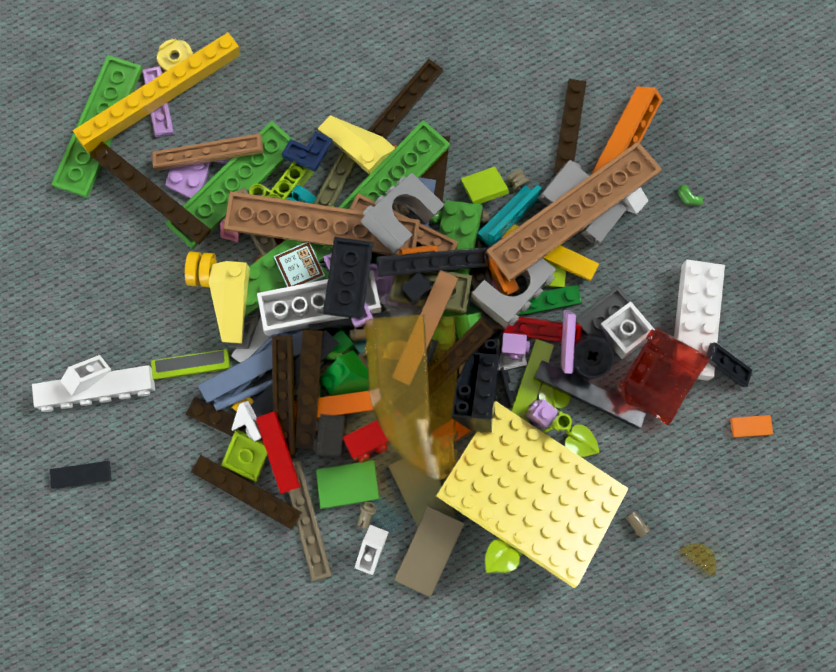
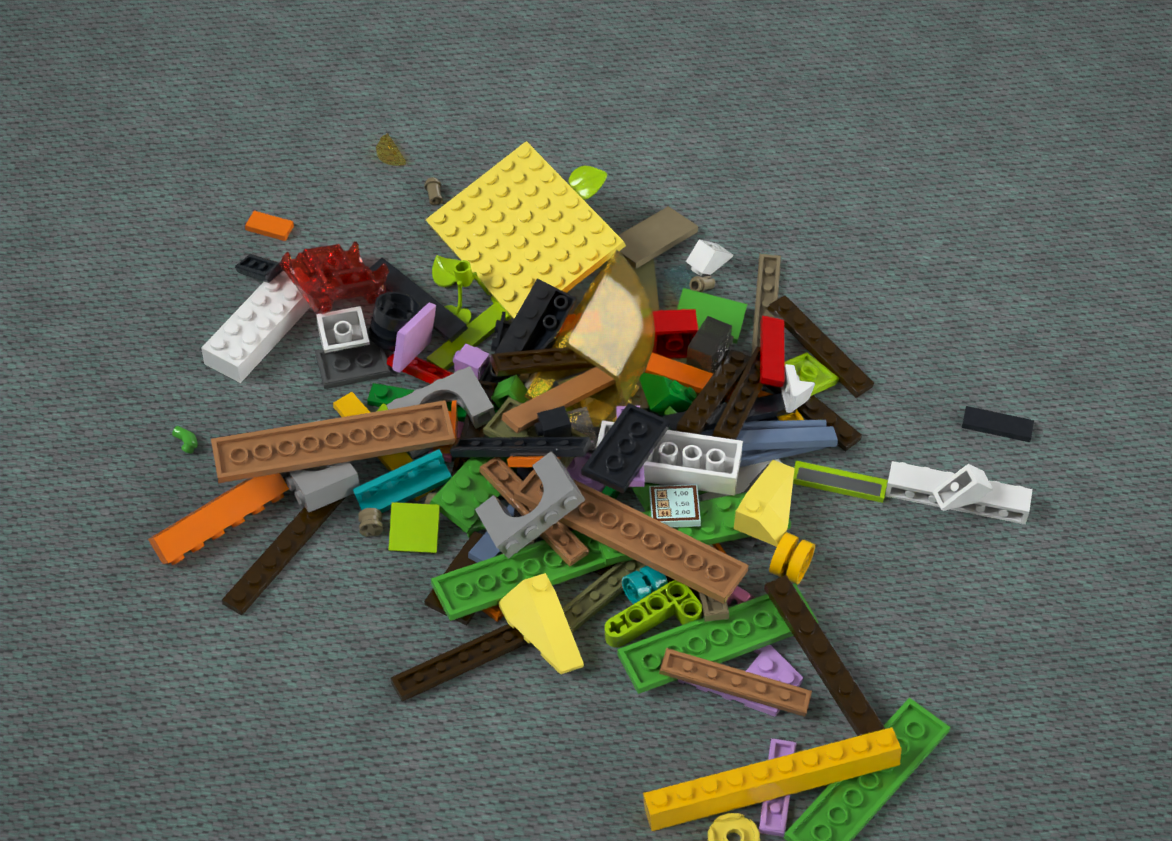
camera: 160 degrees left, 25 degrees down
(310, 155) = (608, 620): dark blue plate -> none
(541, 413) = (477, 298): lavender brick -> none

